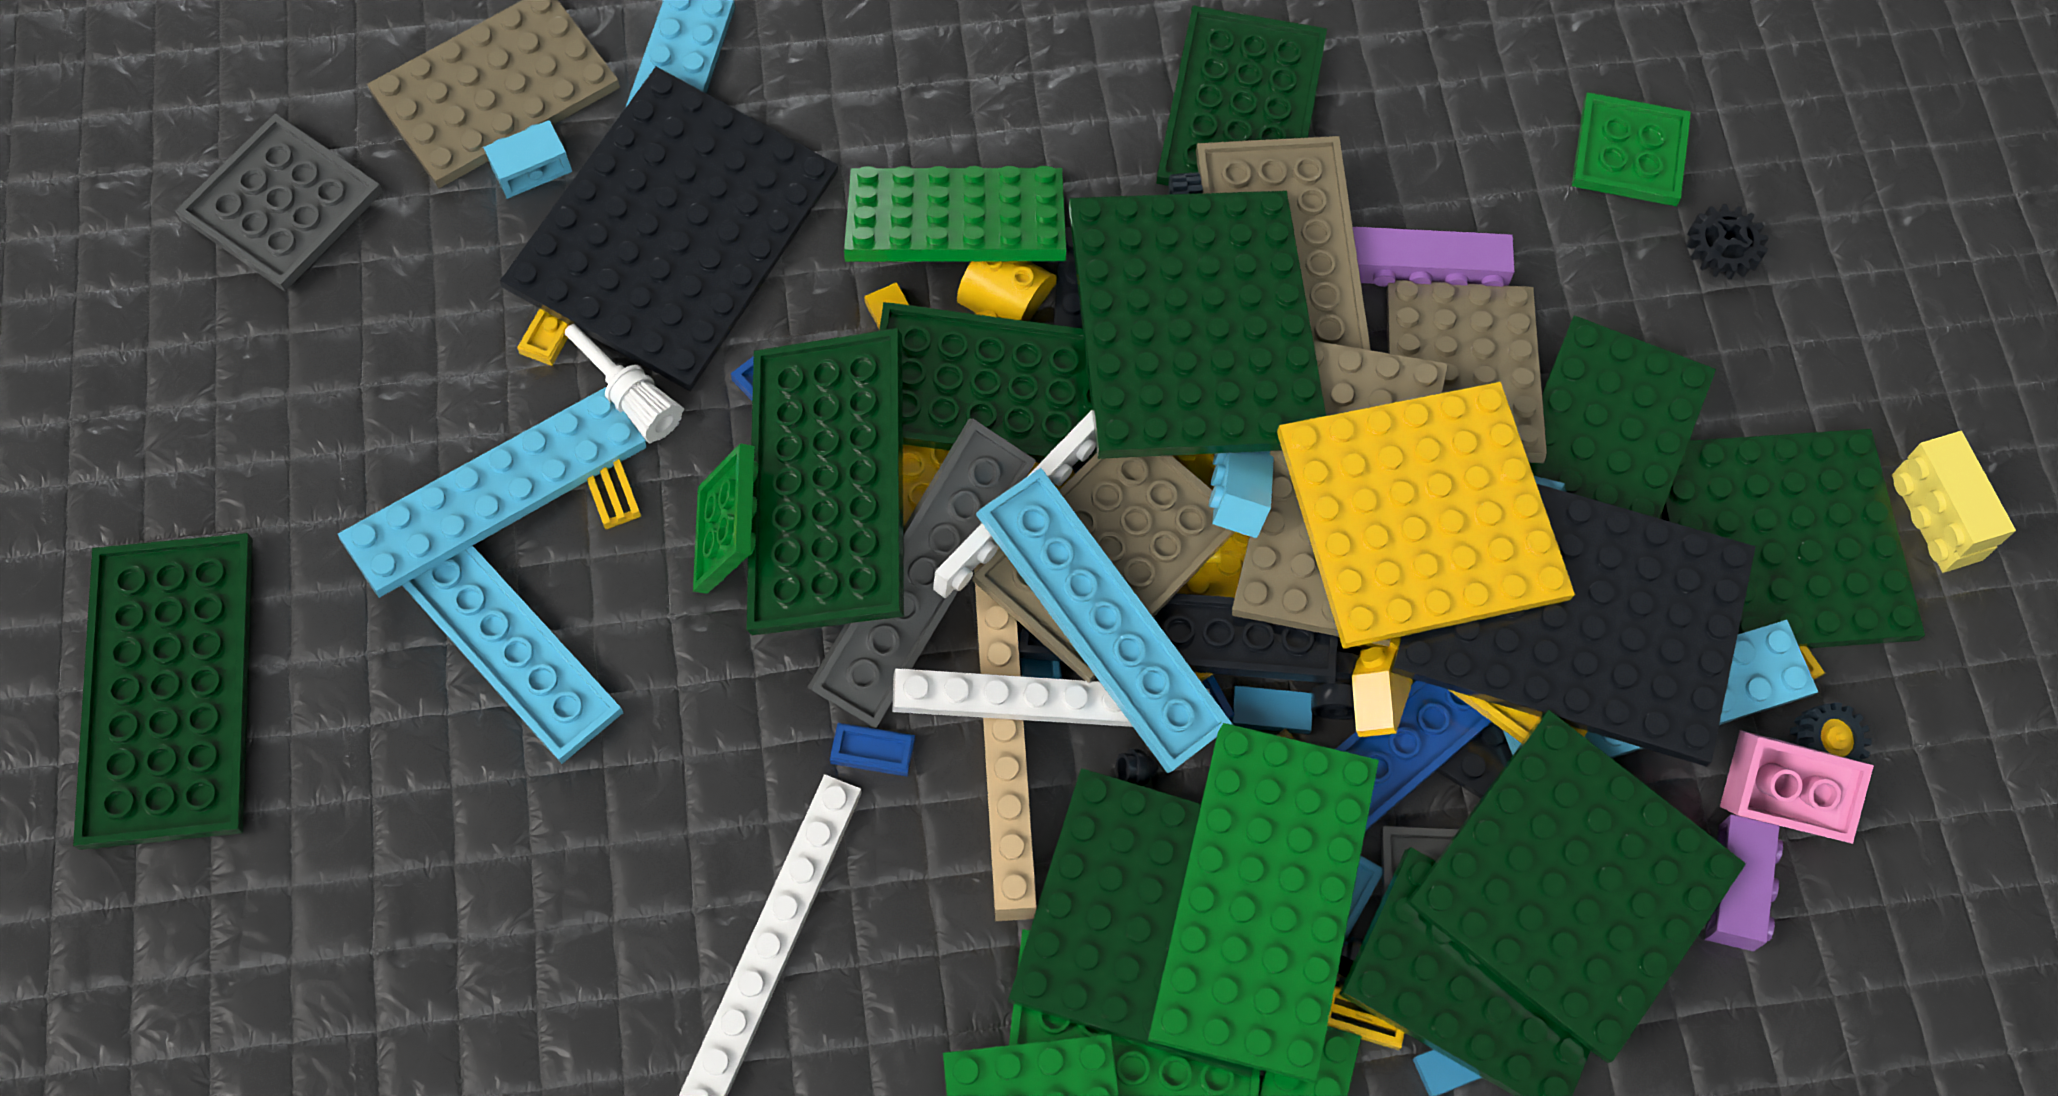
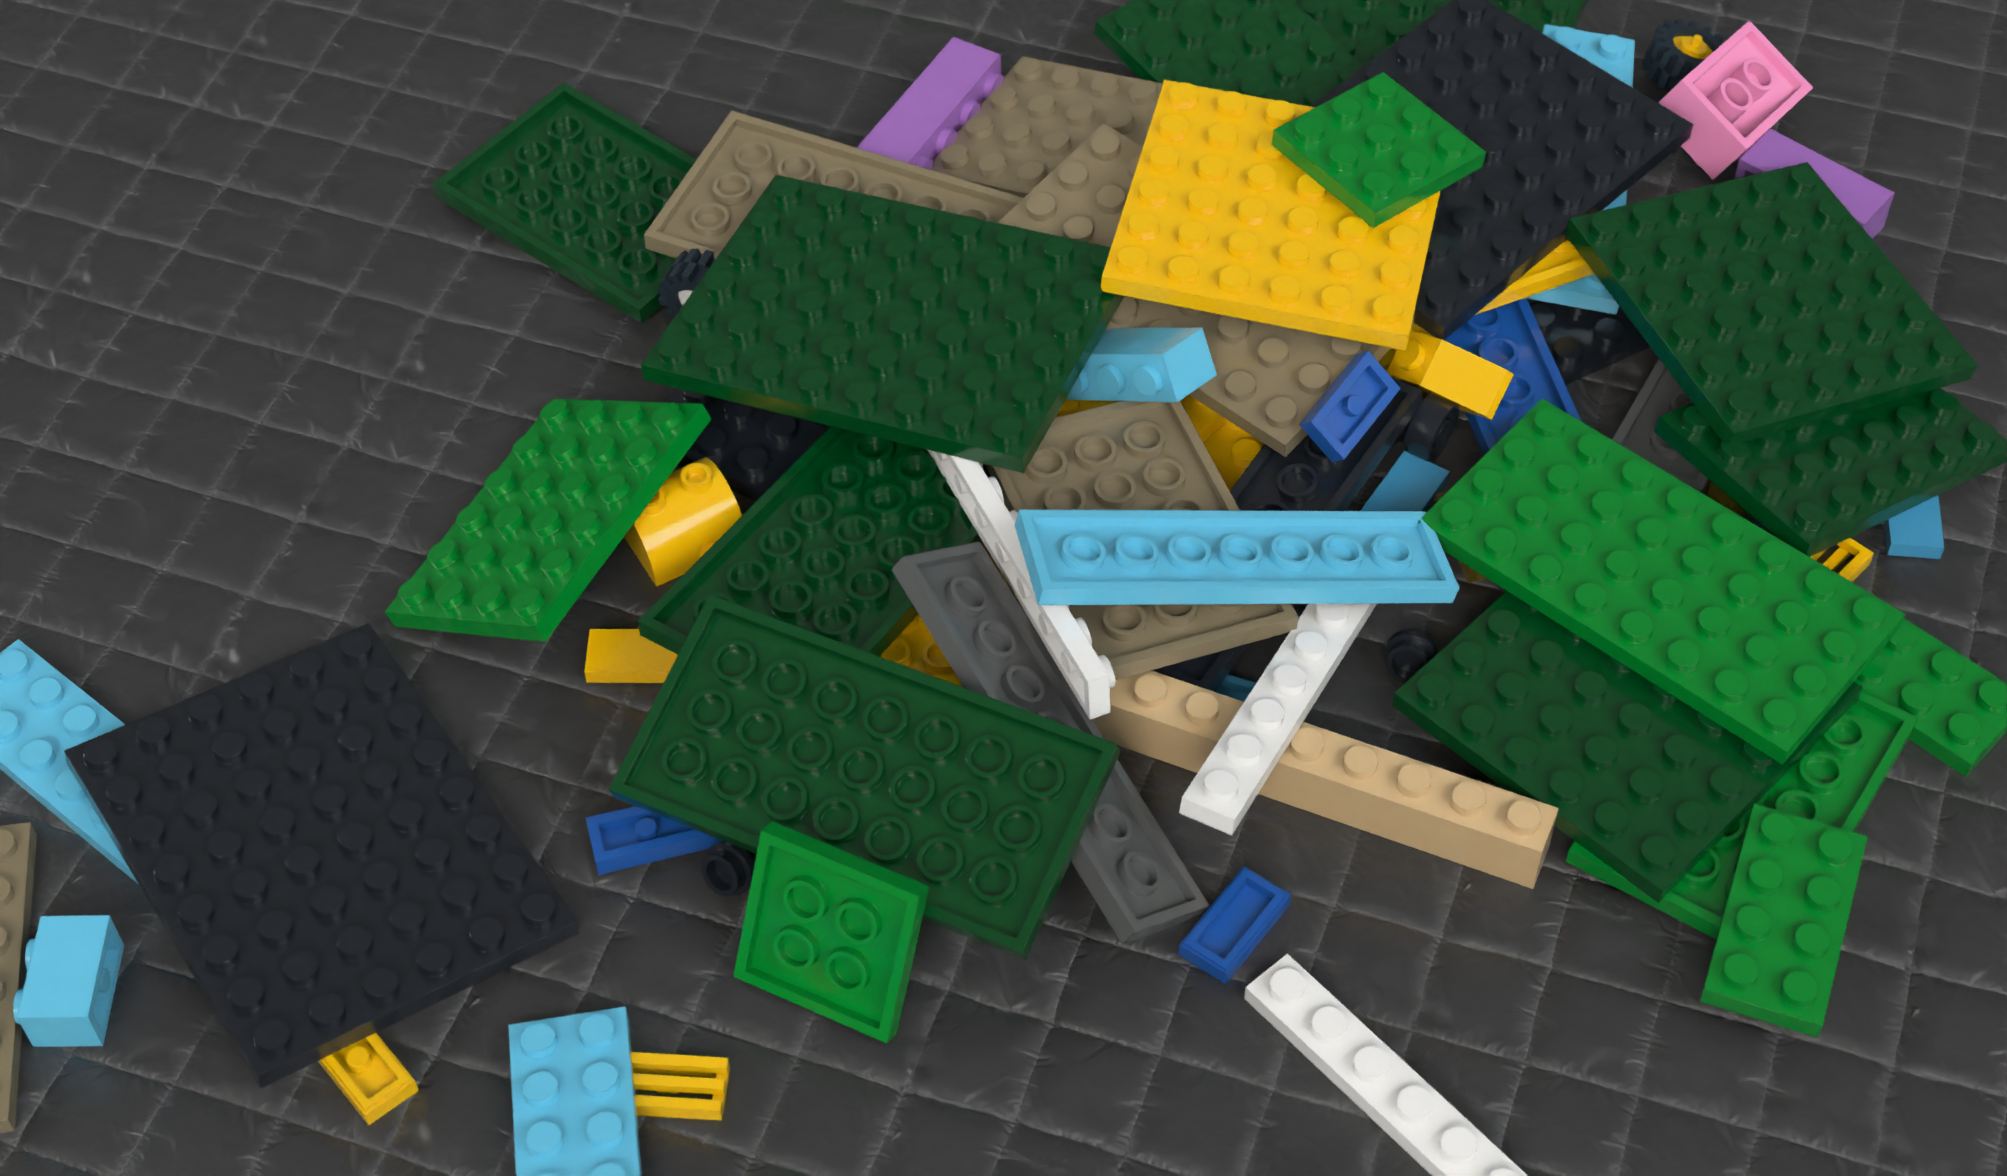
camera: 60 degrees left, 15 degrees down
(632, 391) = (537, 990): white piece -> none
(1284, 635) = (1350, 406): none -> blue plate
(1511, 549) = (1378, 149): none -> green plate

